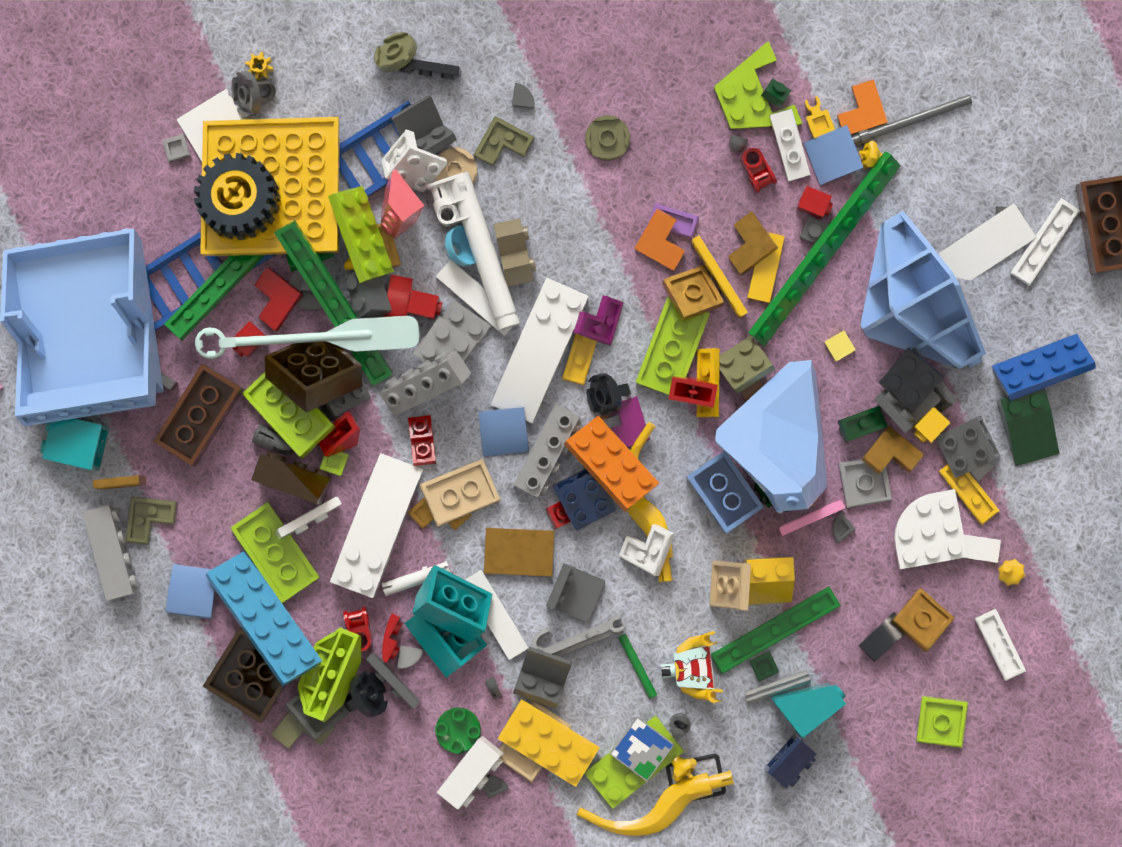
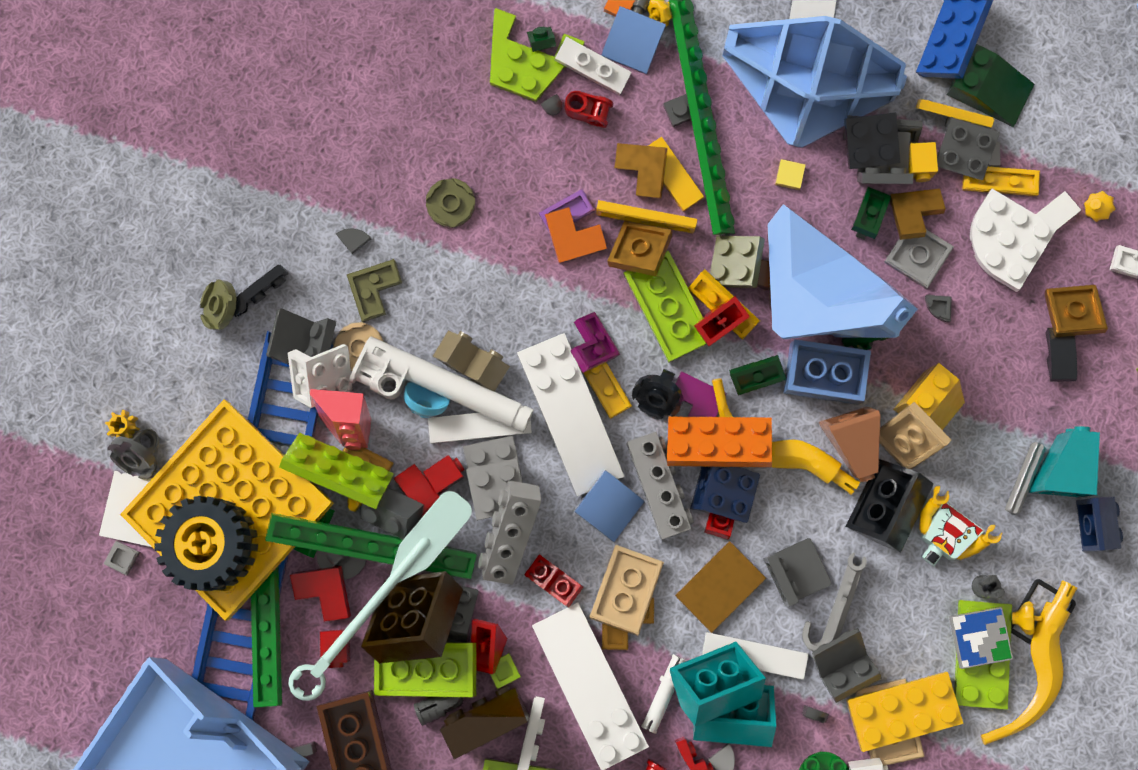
camera: 50 degrees left, 5 degrees down
(639, 669) = (904, 577): green bar -> none
(648, 555) = (824, 479): white tile -> none
(675, 613) = (890, 505): none -> black slope
(680, 448) = (757, 375): none -> dark green hinge
(696, 552) = (856, 440): none -> nougat slope
(764, 666) = (998, 473): dark green tile -> none
(775, 630) = (976, 436): green tile -> none
(811, 517) = (907, 333): bright pink tile -> none
(815, 202) = (657, 88): red brick -> none
(819, 121) = (595, 27): yellow plate -> none
(985, 417) = (955, 112): none -> yellow tile

